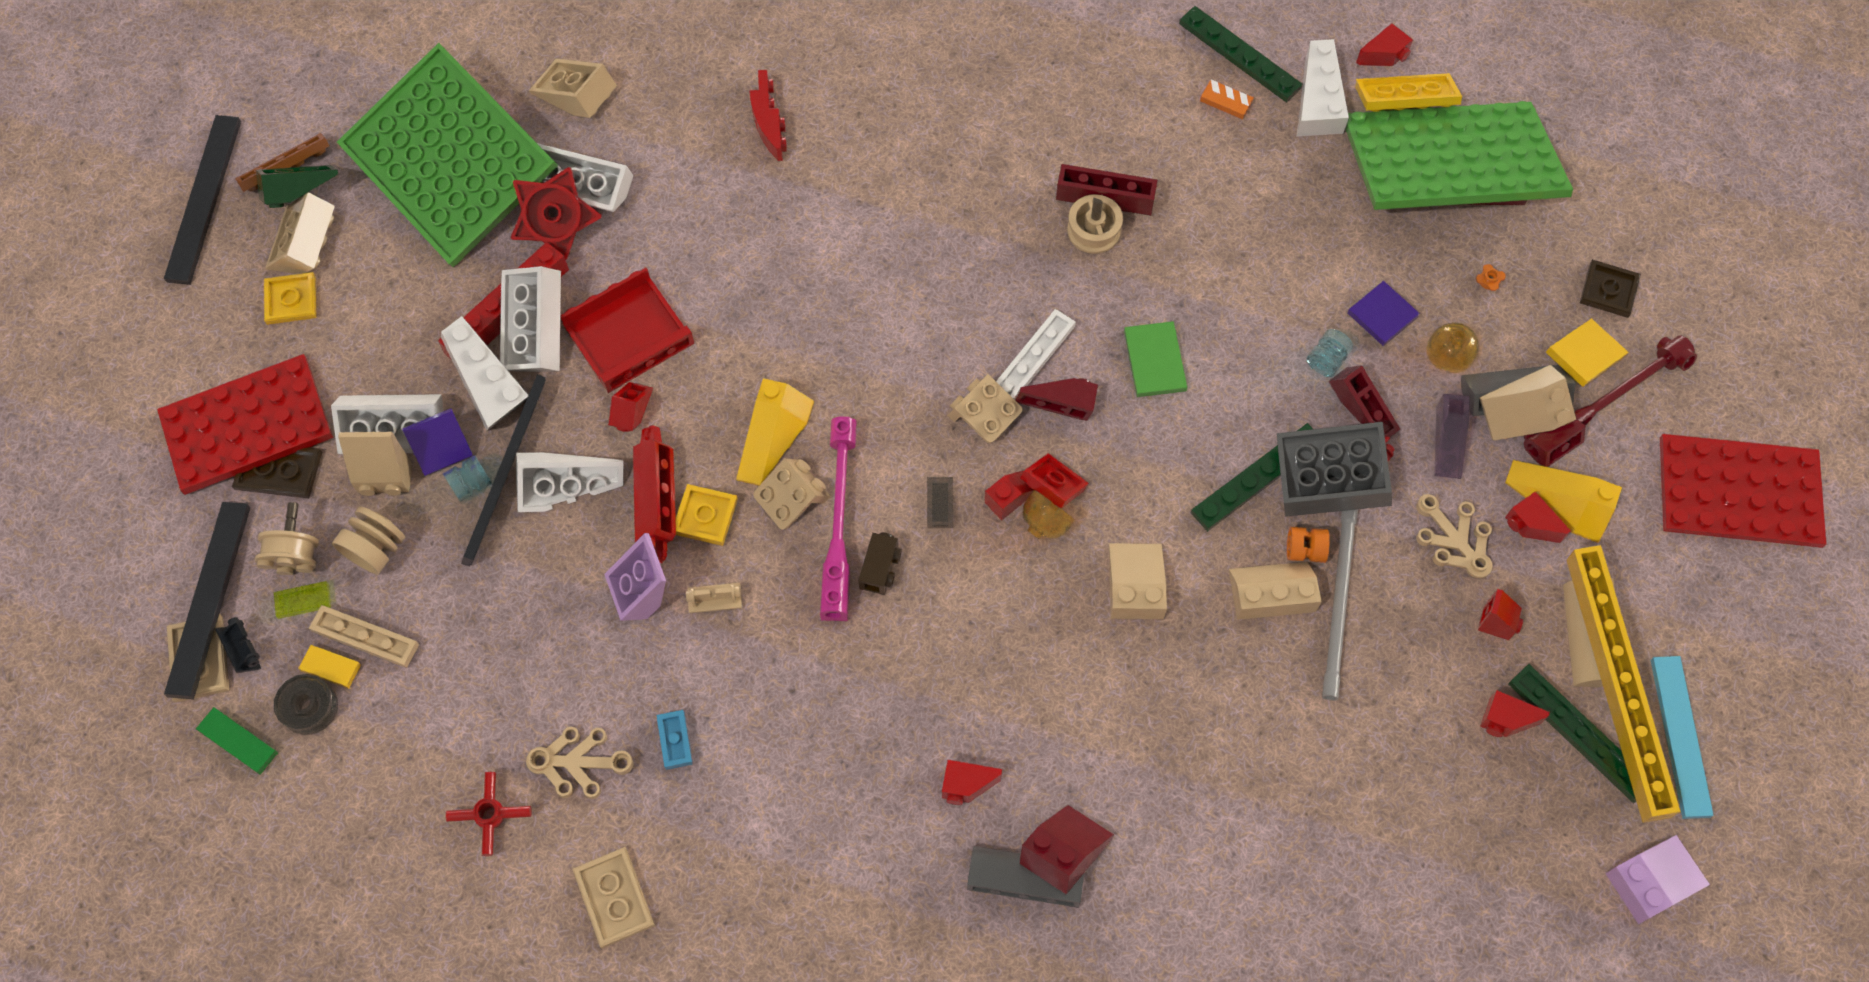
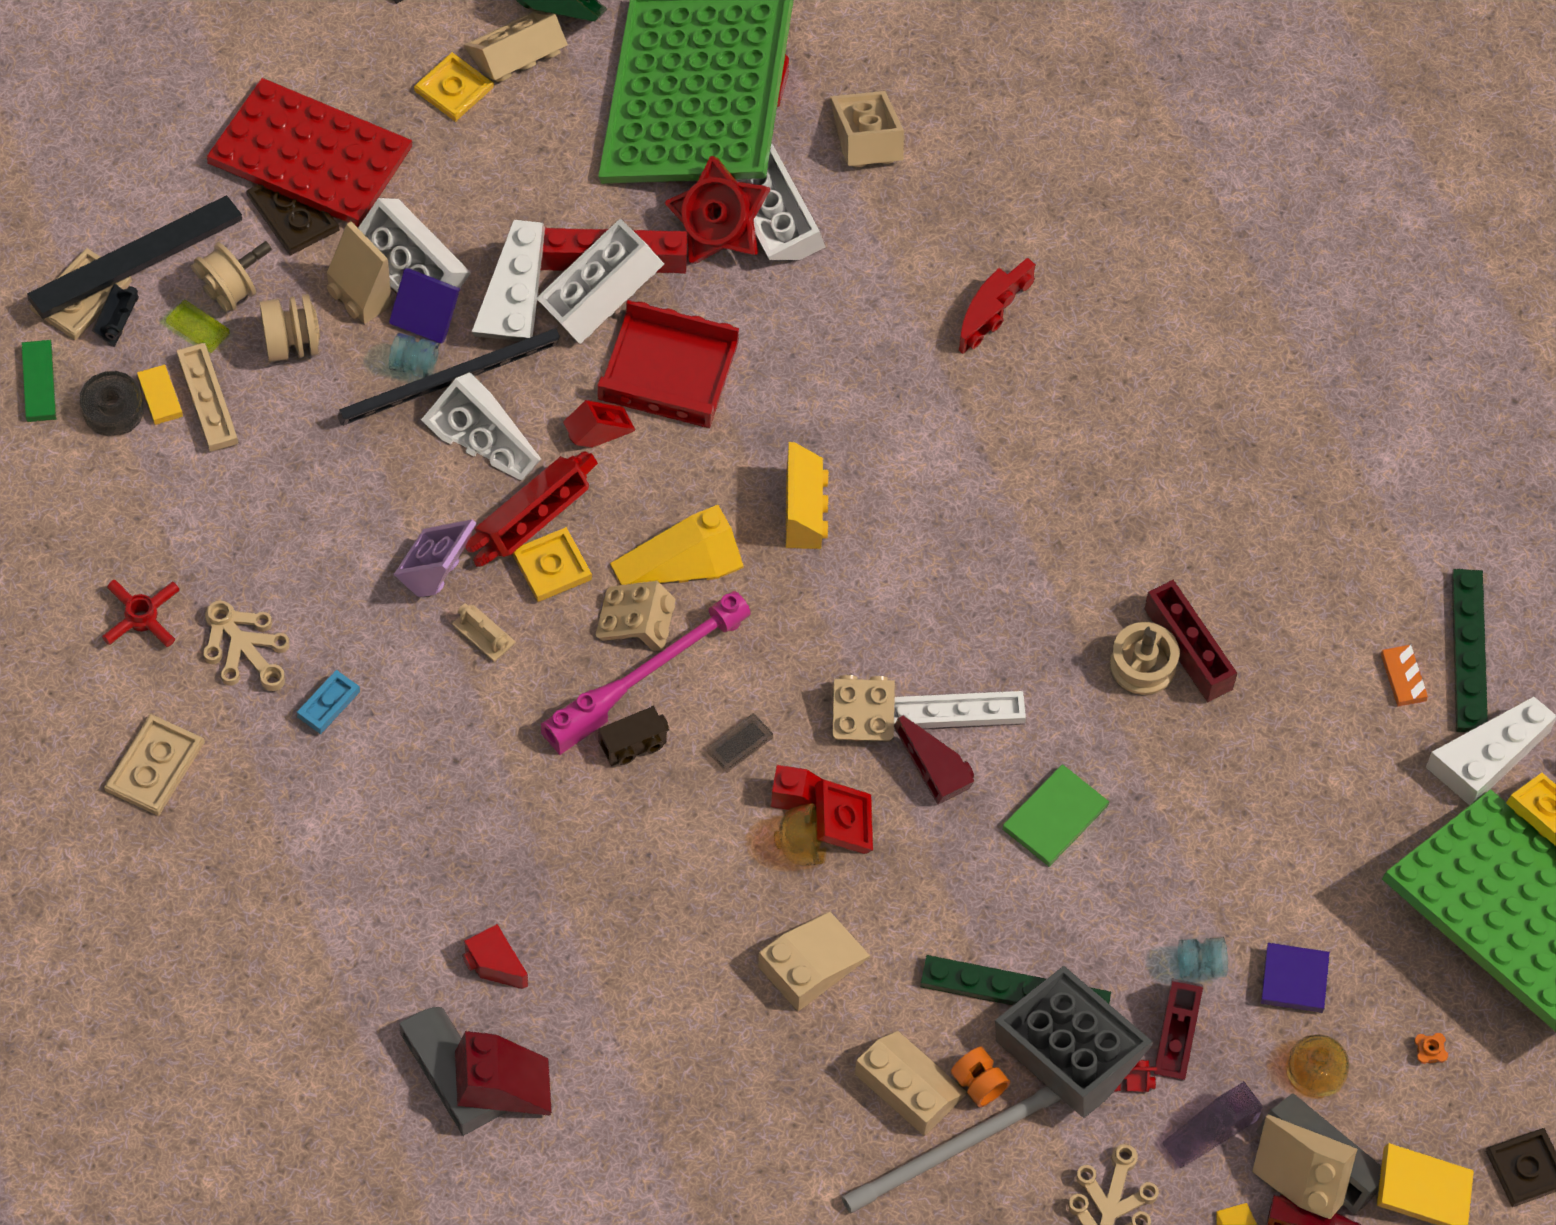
camera: 45 degrees right, 5 degrees down
(803, 327) = (805, 498): none -> yellow slope

